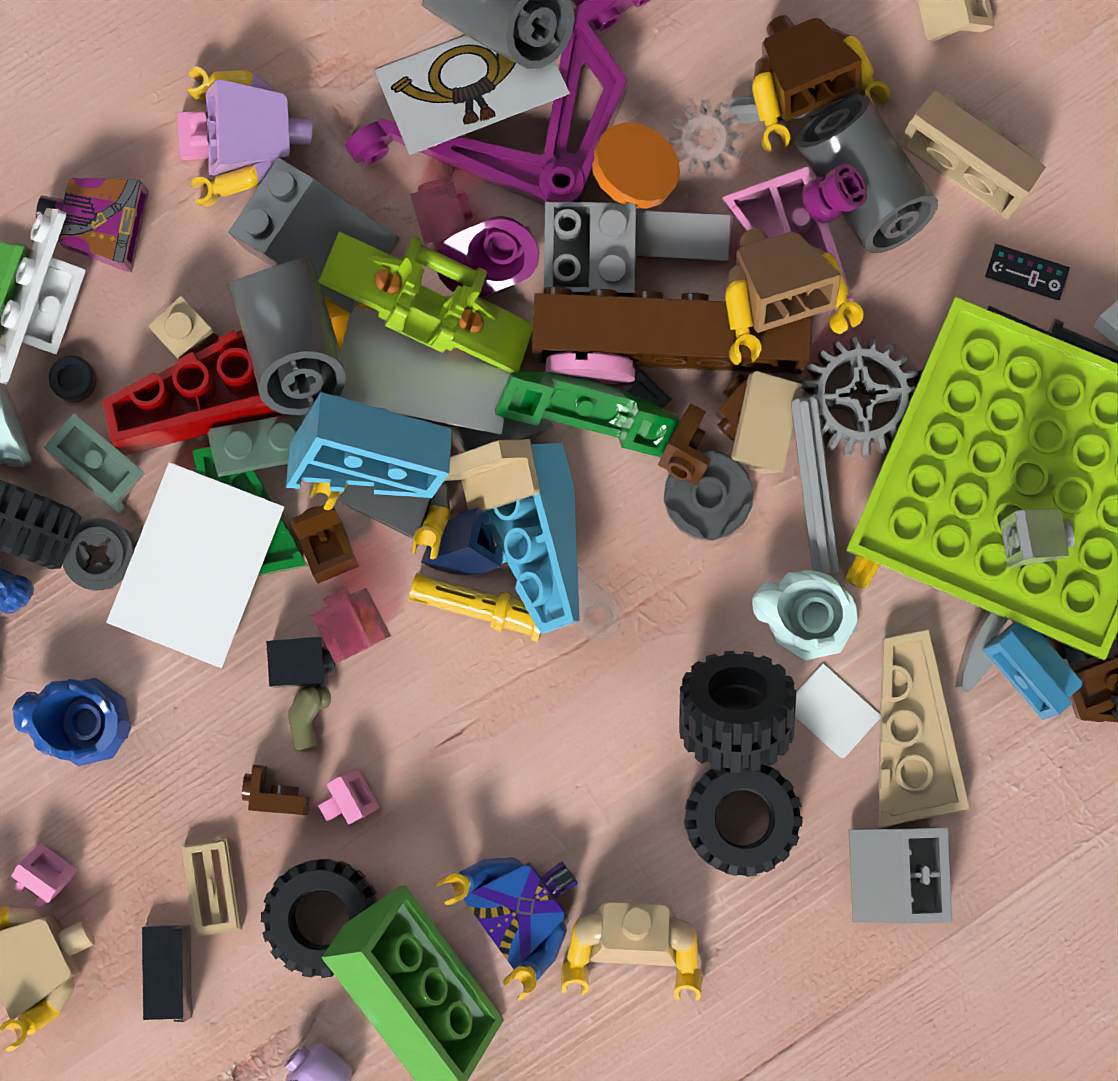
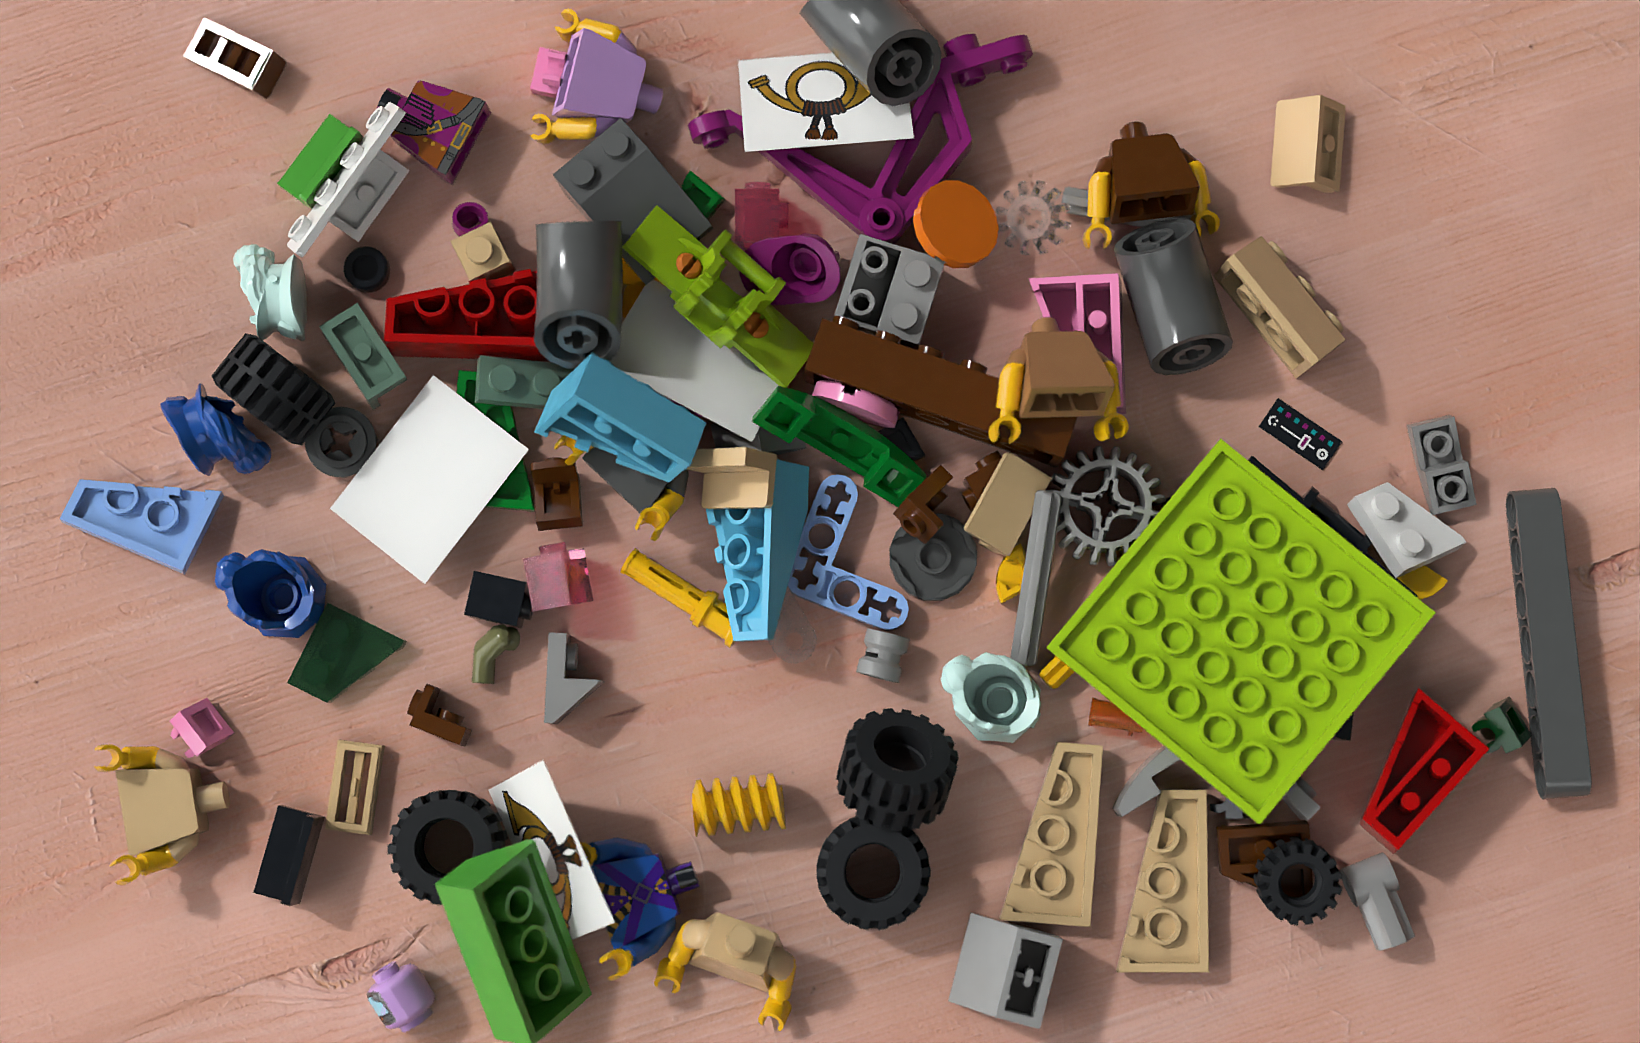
camera: 15 degrees right, 0 degrees up
(155, 298) = (468, 215): none -> magenta hinge
(159, 760) = (341, 653): none -> clear green wing
(350, 798) = (509, 742): bright pink tile -> none
(379, 209) = (702, 195): none -> green tile
(387, 734) = (561, 692): none -> light grey slope
(396, 856) = (535, 812): none -> white sticker
(466, 546) = (689, 537): dark blue brick -> none
(592, 791) = (738, 804): none -> yellow piece
(615, 543) = (830, 576): none -> light blue beam
(684, 235) = (983, 304): light grey slope -> none
(689, 605) = (882, 655): none -> light grey wheel
(789, 490) = (1010, 574): none -> yellow tile
(834, 711) = (990, 796): white sticker -> none
(836, 192) = (1135, 306): magenta wheel -> none
(925, 598) = (1108, 715): none -> clear orange pin
(1034, 669) = (1190, 813): dark azure panel -> none
(1036, 536) = (1227, 689): light grey slope -> none
(1039, 769) = (1171, 895): none -> tan wing

